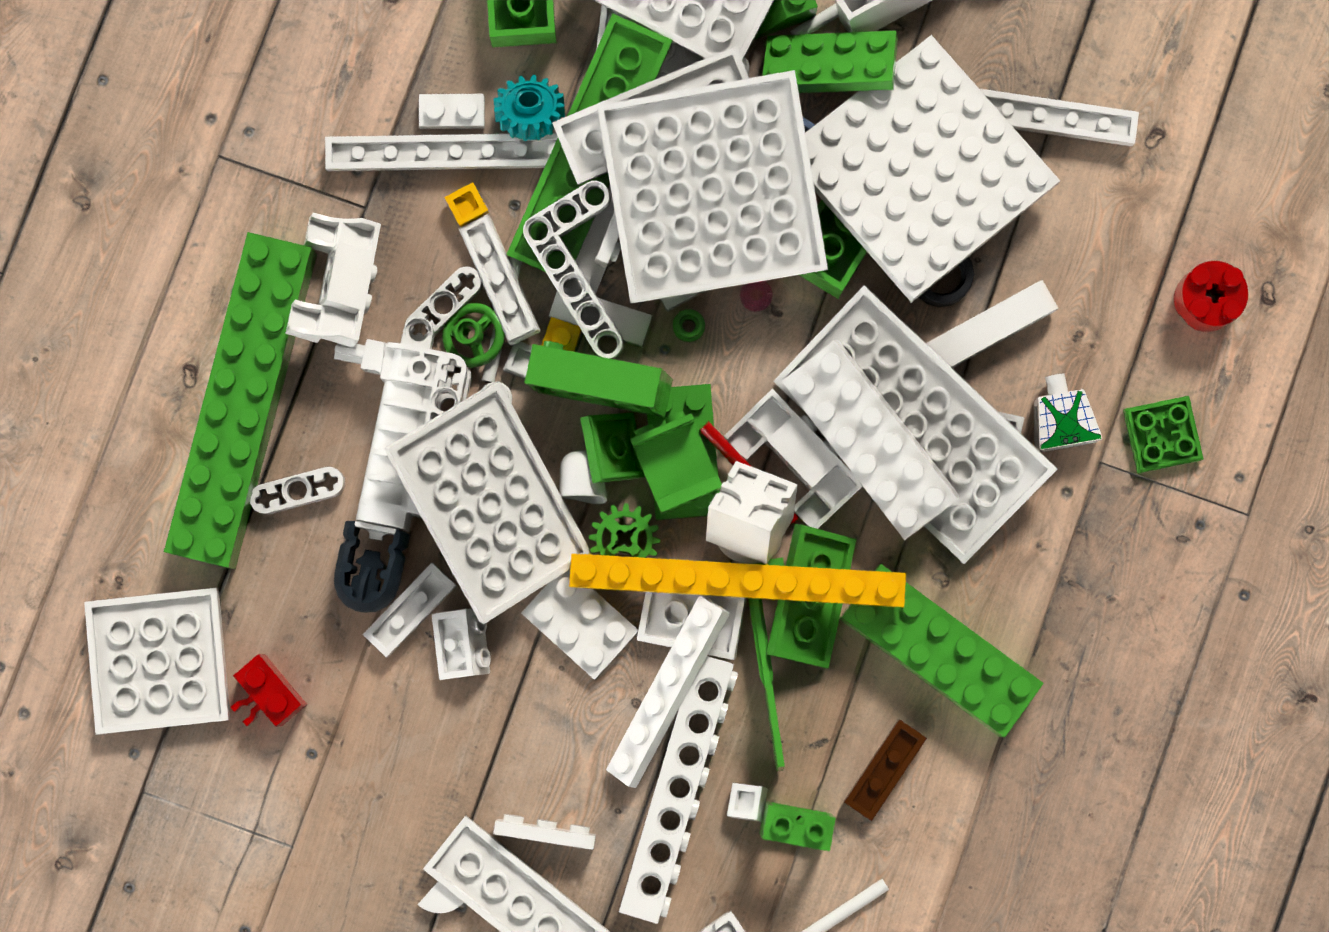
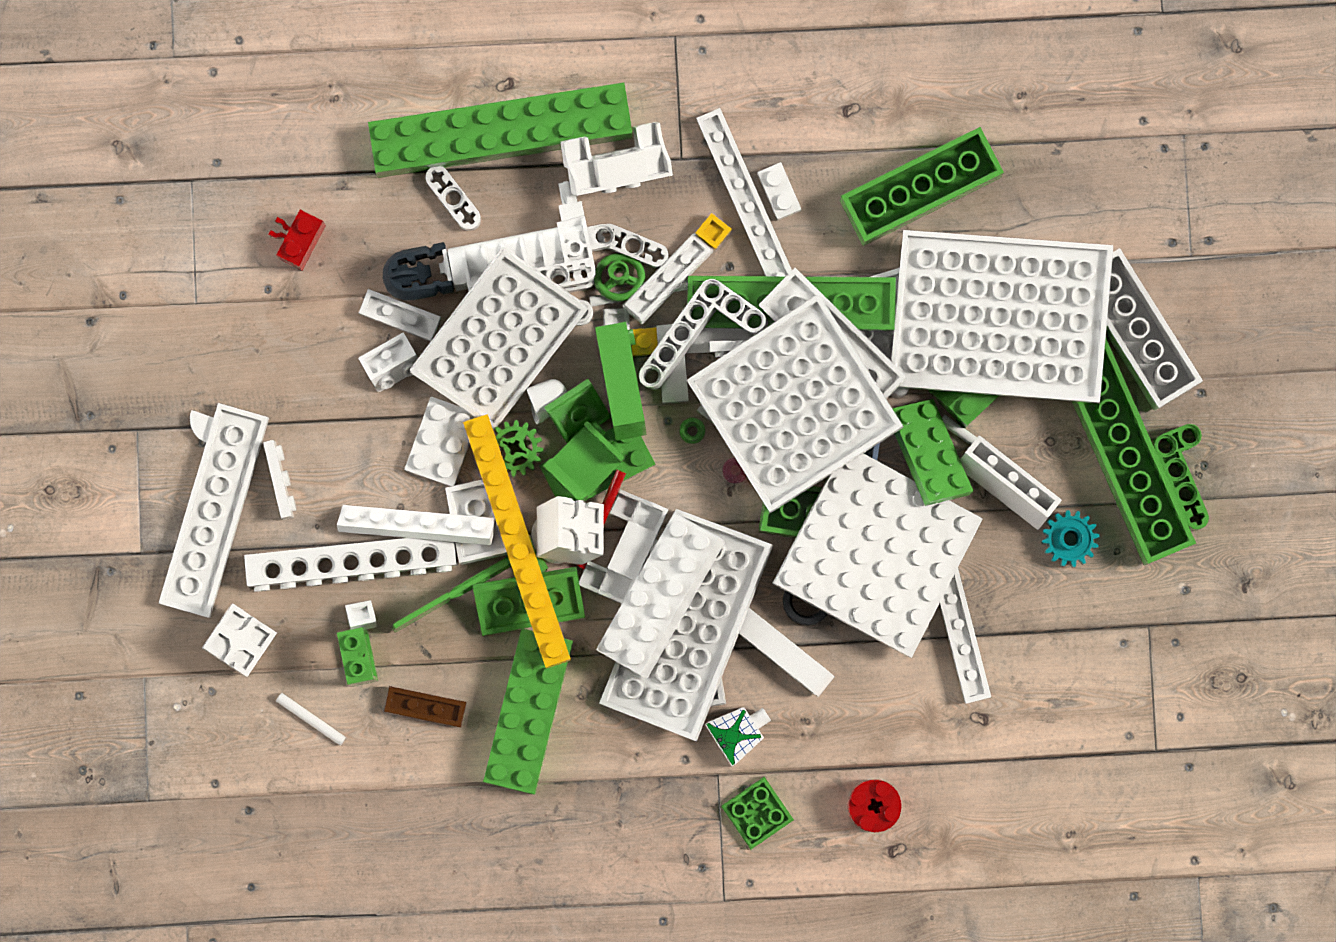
camera: 65 degrees right, 0 degrees up
(157, 661) = (289, 151): white plate -> none
(529, 108) = (792, 253): teal gear -> none

